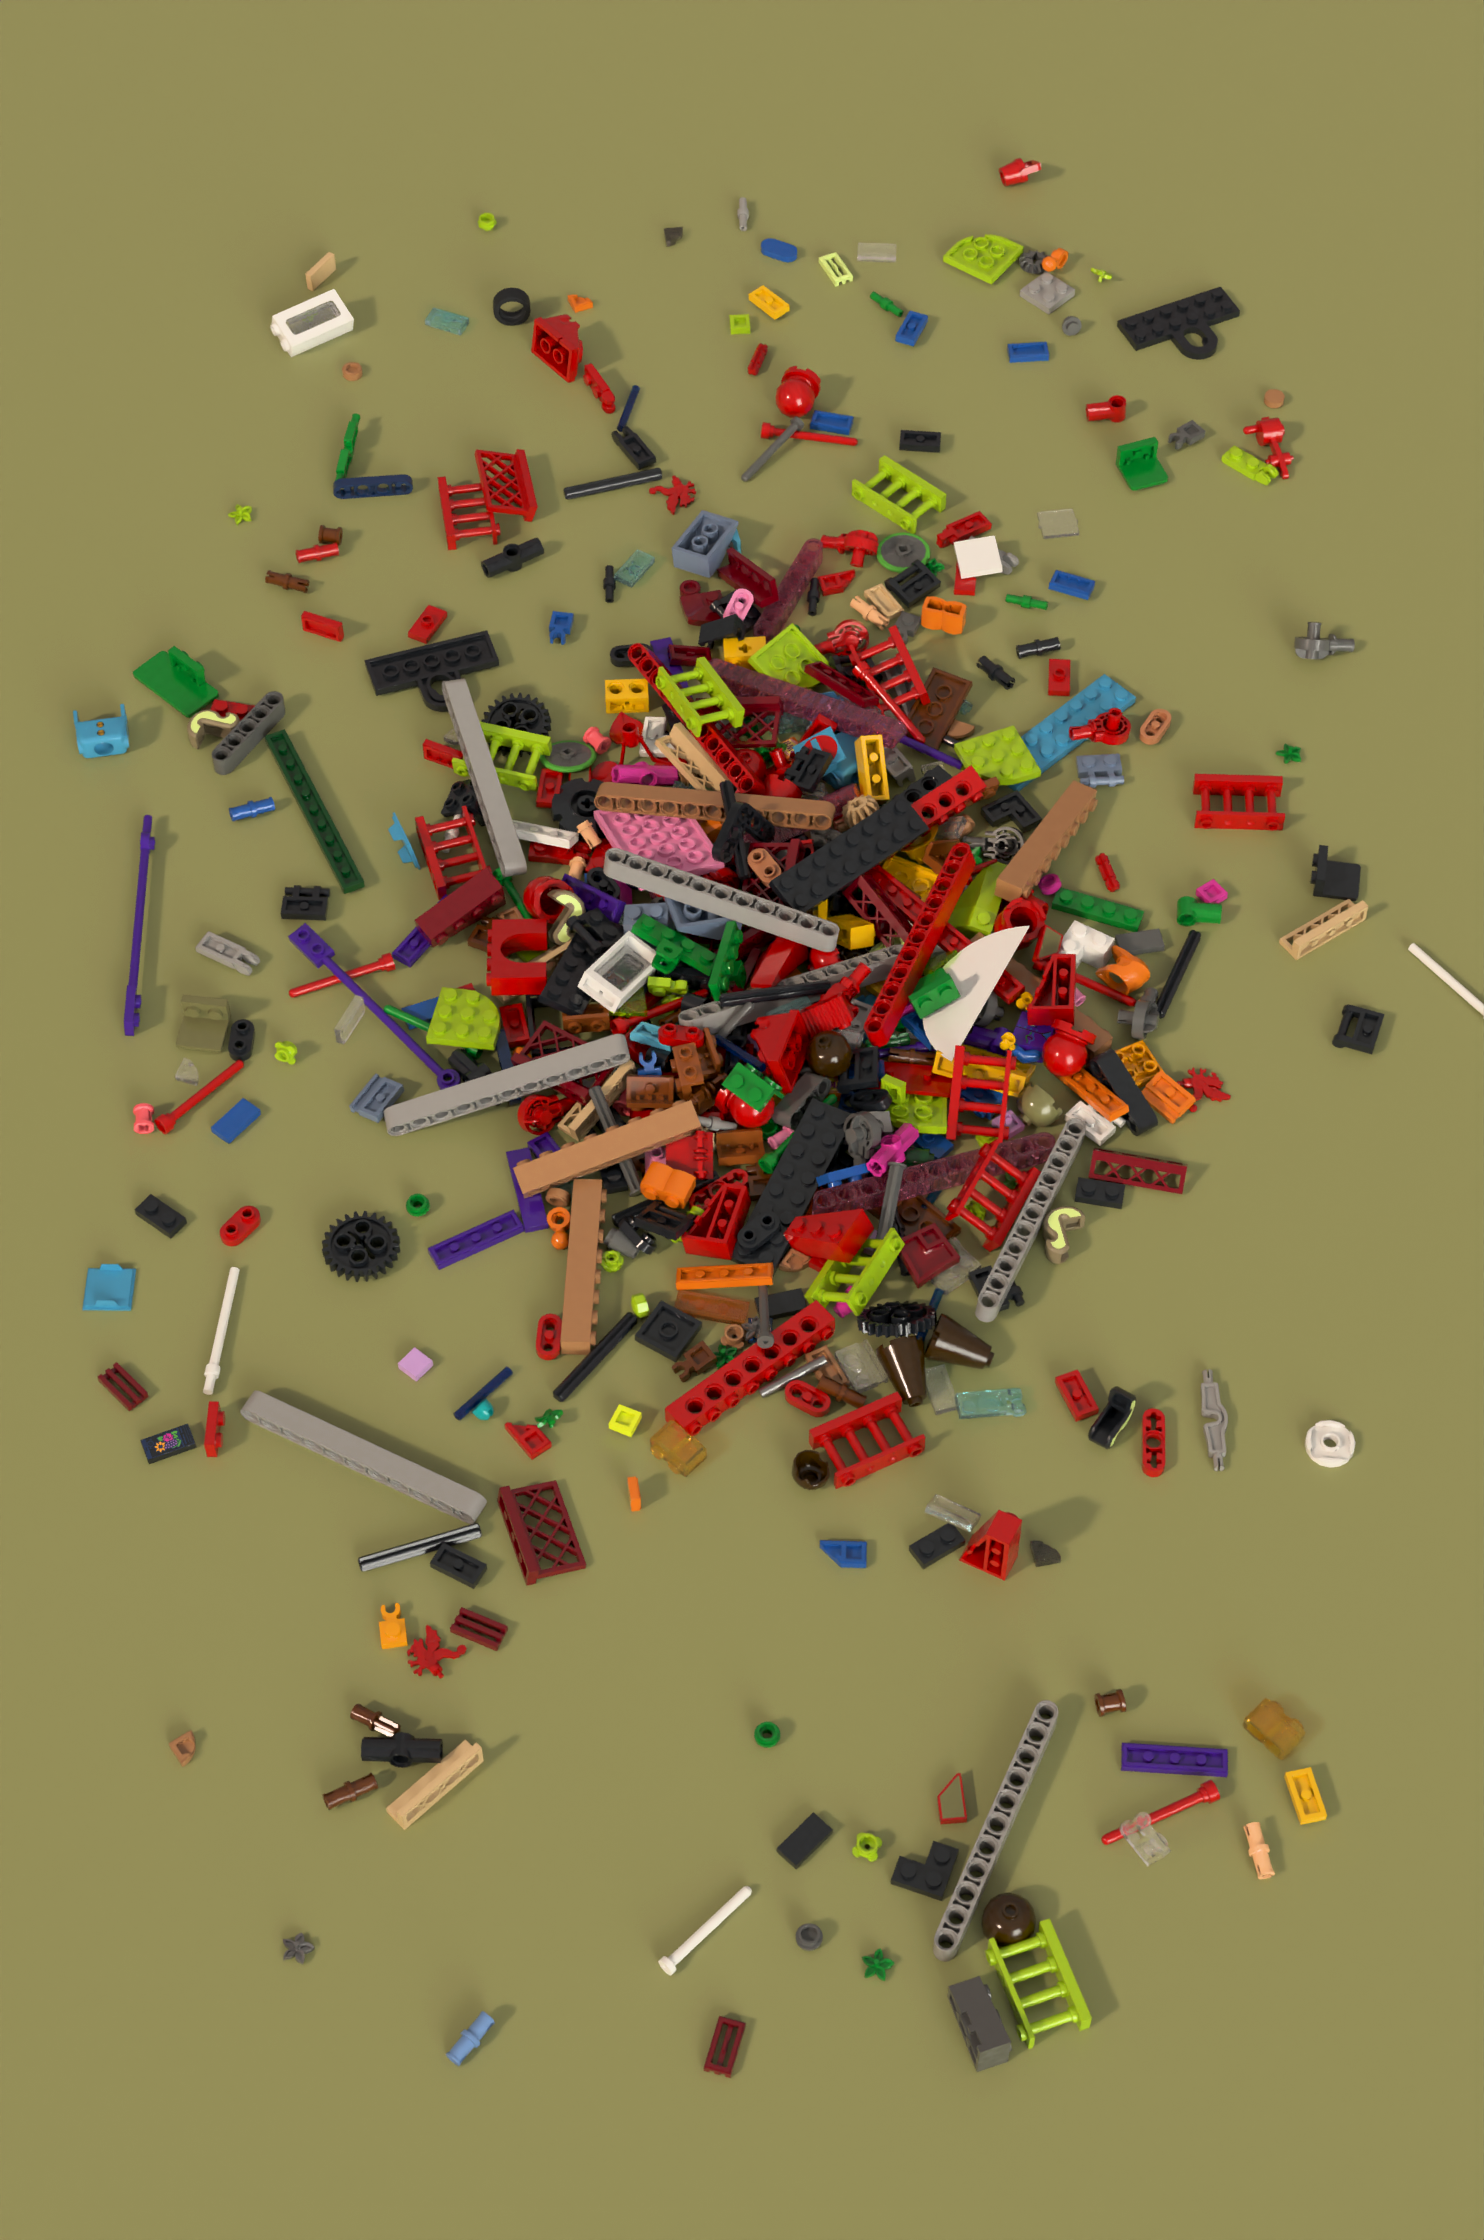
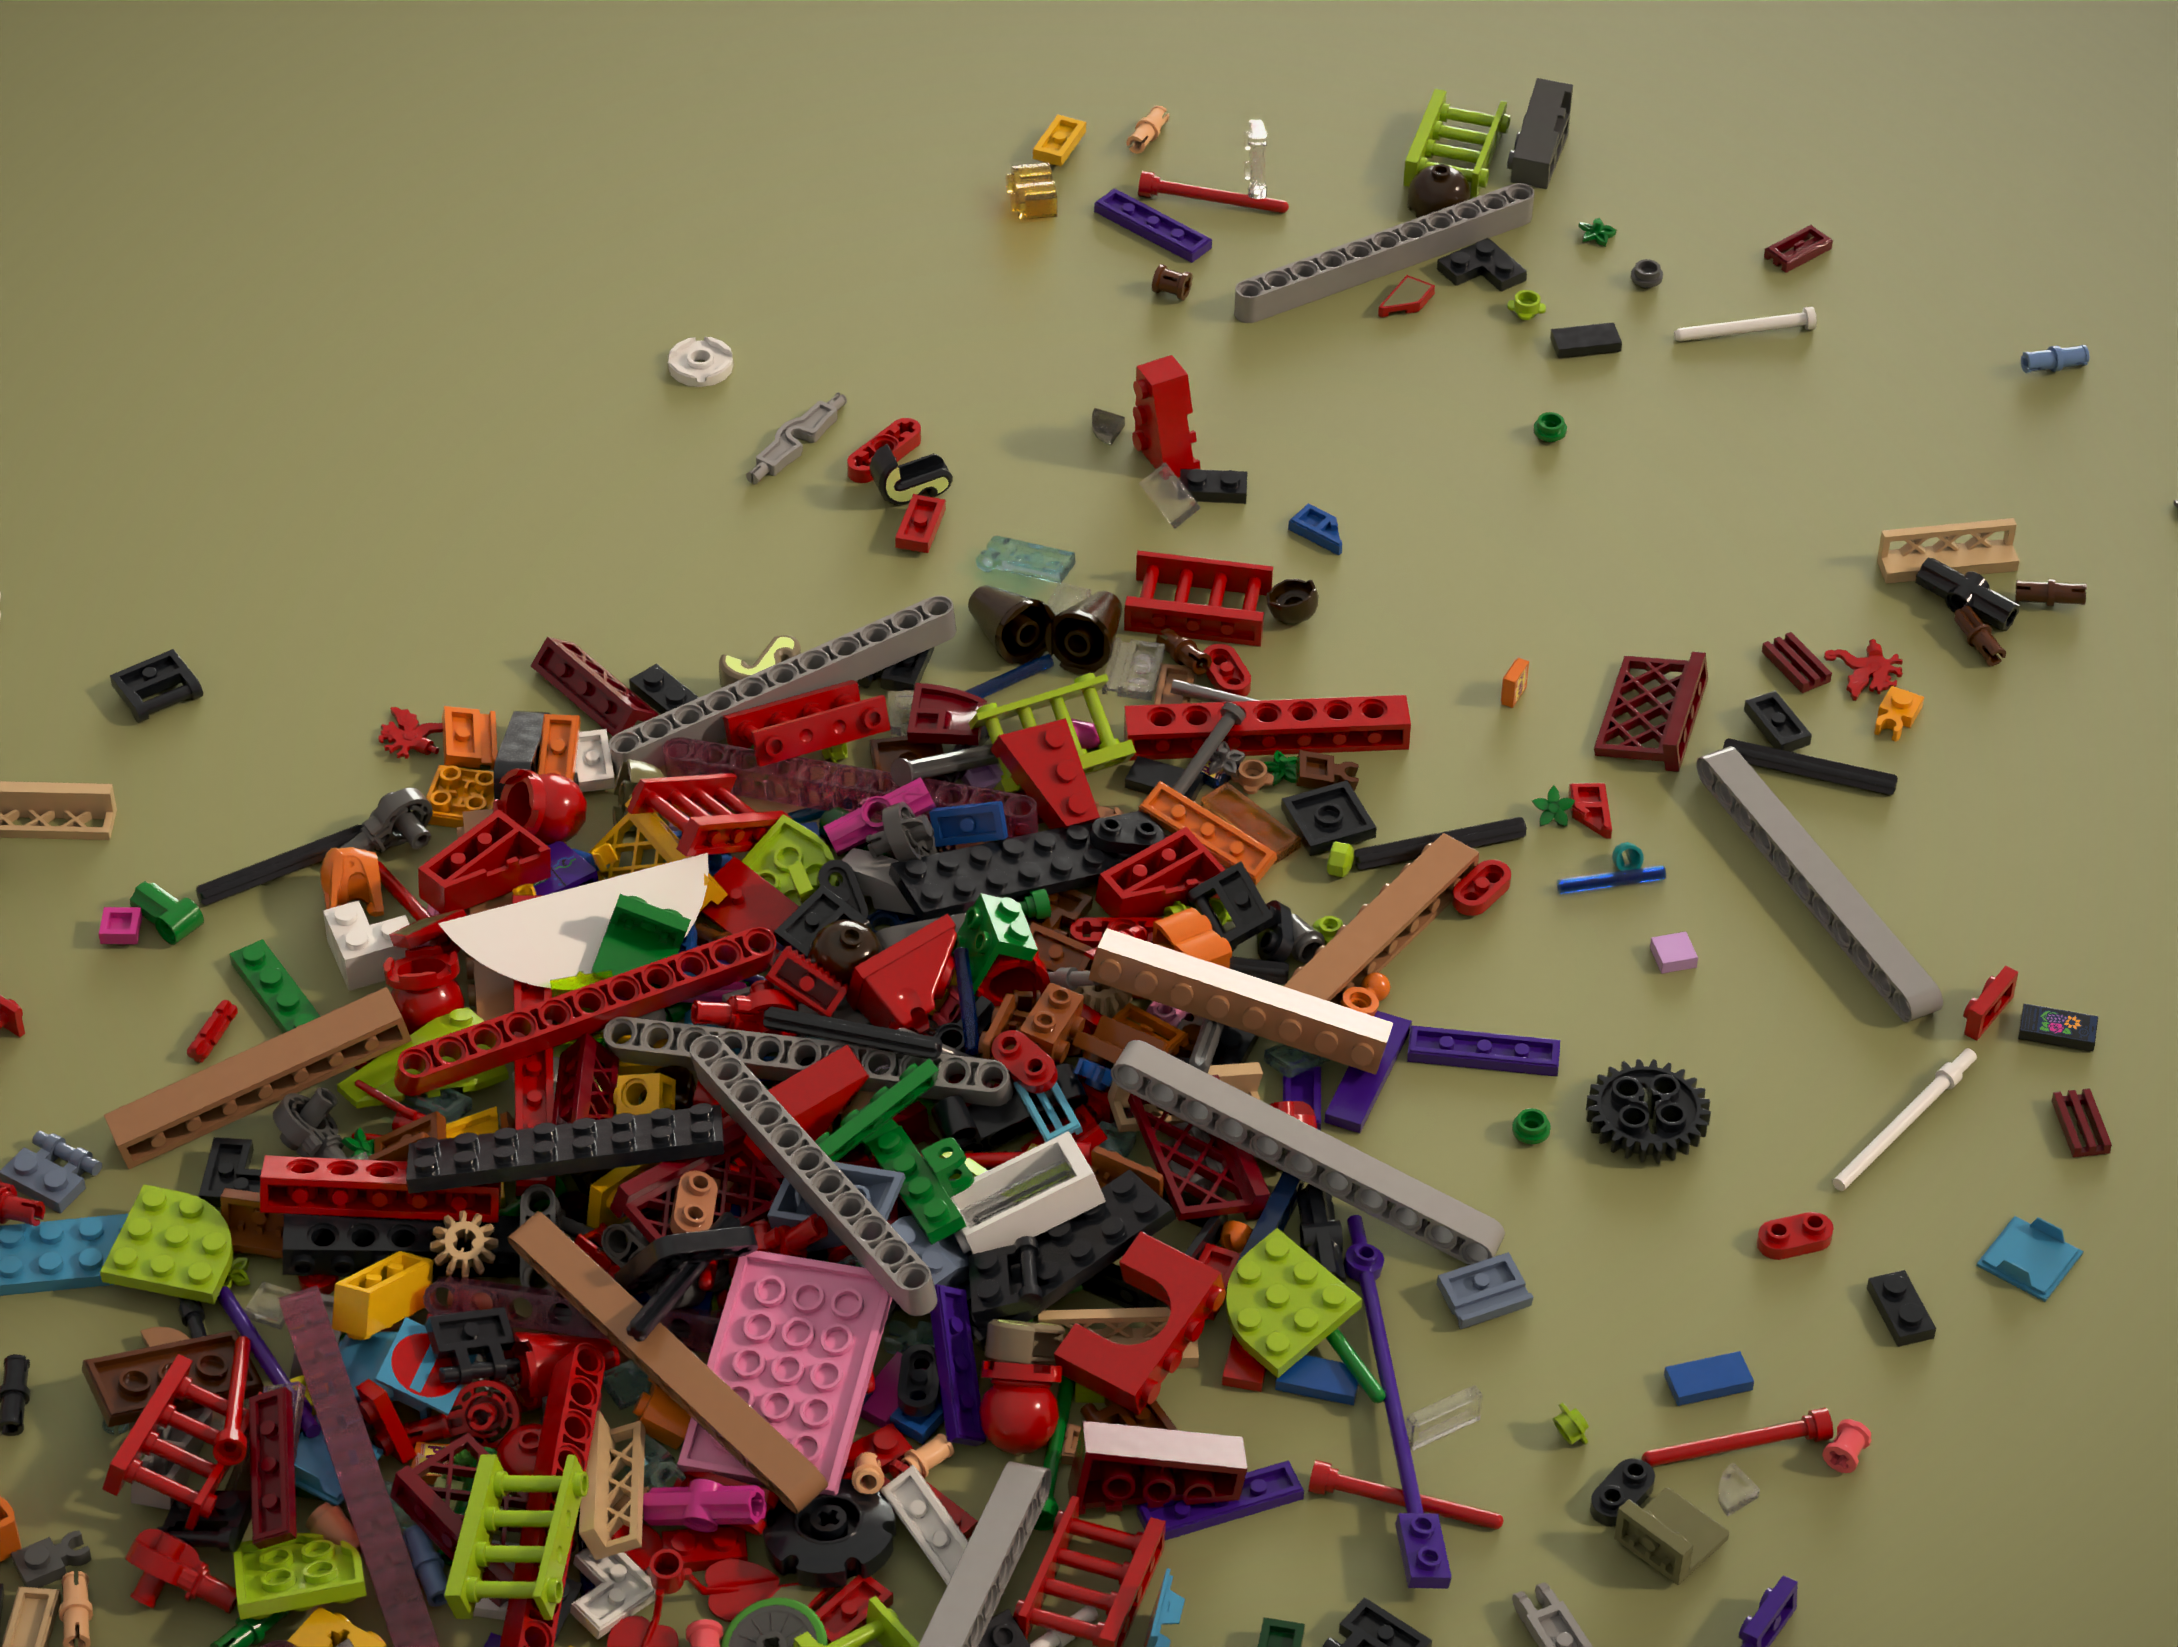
camera: 145 degrees left, 10 degrees down
(625, 1420) = (1462, 758): neon yellow plate -> none
(677, 1448) = (1427, 697): clear yellow brick -> none
(897, 1319) = (1042, 633): black gear -> none
(1141, 941) = (280, 927): dark grey tile -> none

